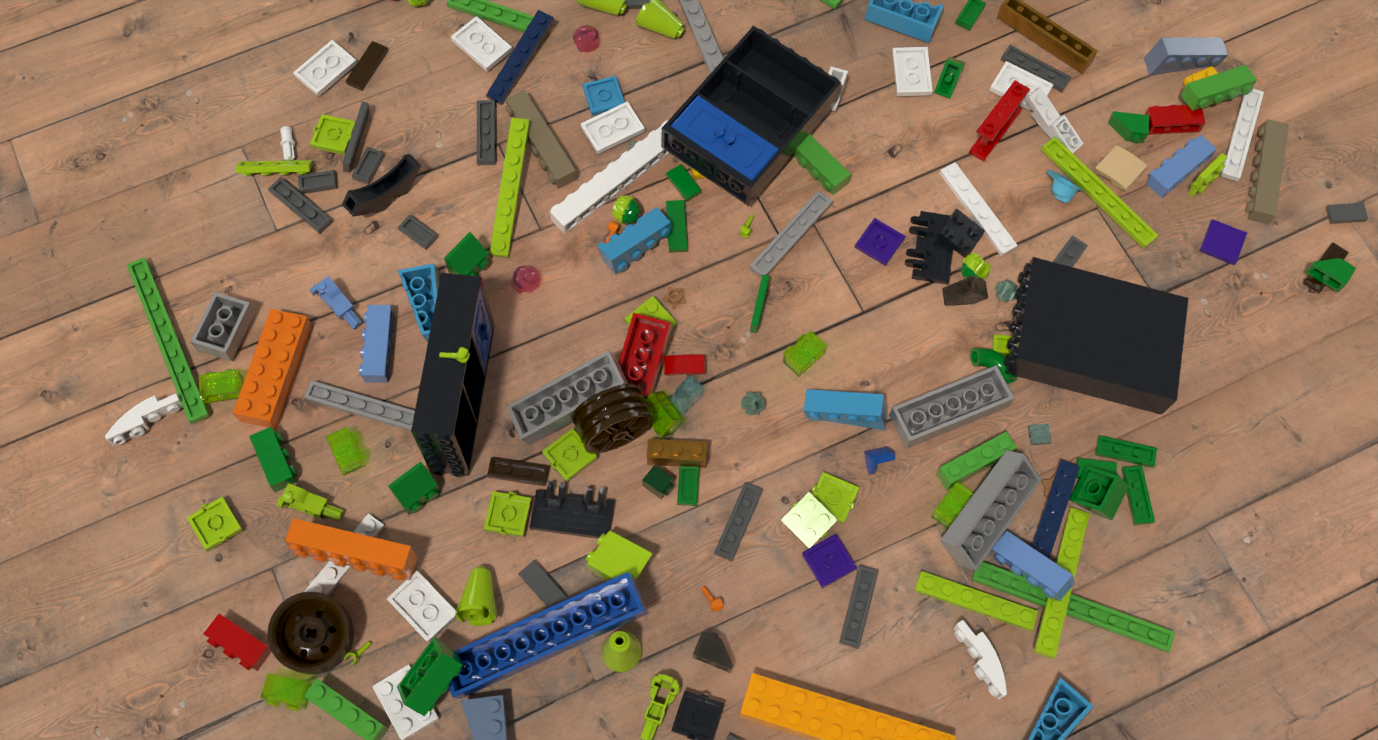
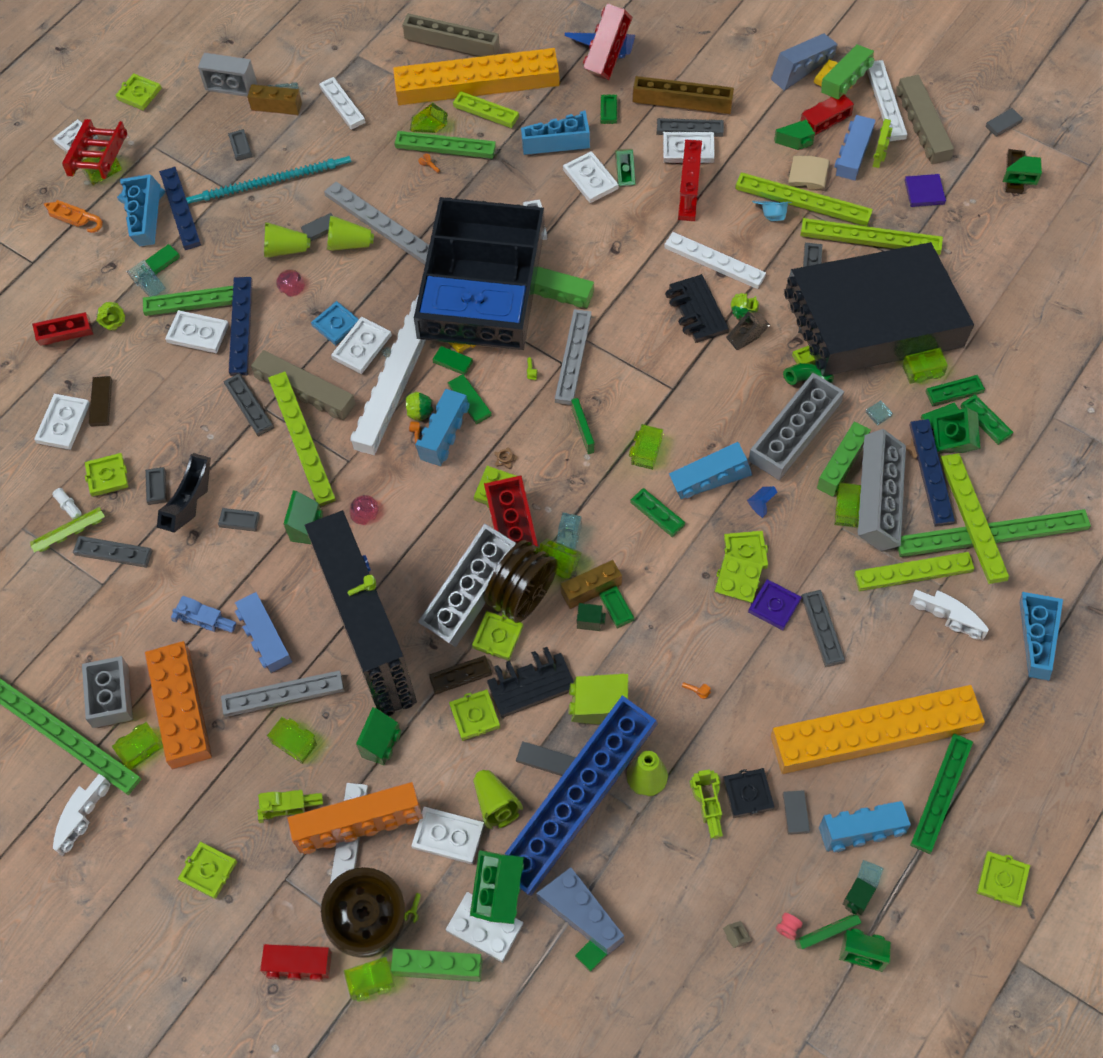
camera: 25 degrees left, 5 degrees down
(273, 458) = (228, 782): green brick -> none
(317, 182) = (116, 523): dark grey tile -> none
(356, 137) = (130, 466): dark grey tile -> none
(422, 288) = (281, 568): dark azure wedge -> none
(684, 364) = (550, 508): red slope -> none
(712, 651) = (727, 731): clear smoke slope -> none
(738, 522) = (678, 614): dark grey tile -> none
(752, 403) = (629, 509): sand green gear -> none
(778, 419) = (657, 512): none -> green tile
(880, 241) = (651, 326): dark purple tile -> none
(960, 233) = (714, 284): black plate -> none
(1006, 290) = (780, 312): sand green gear -> none
(1033, 566) = (944, 515): medium blue brick -> none
(1051, 121) = (731, 162): white slope -> none
(1110, 413) = (925, 366): none -> clear neon green brick
(1140, 260) = (866, 235): none -> lime plate

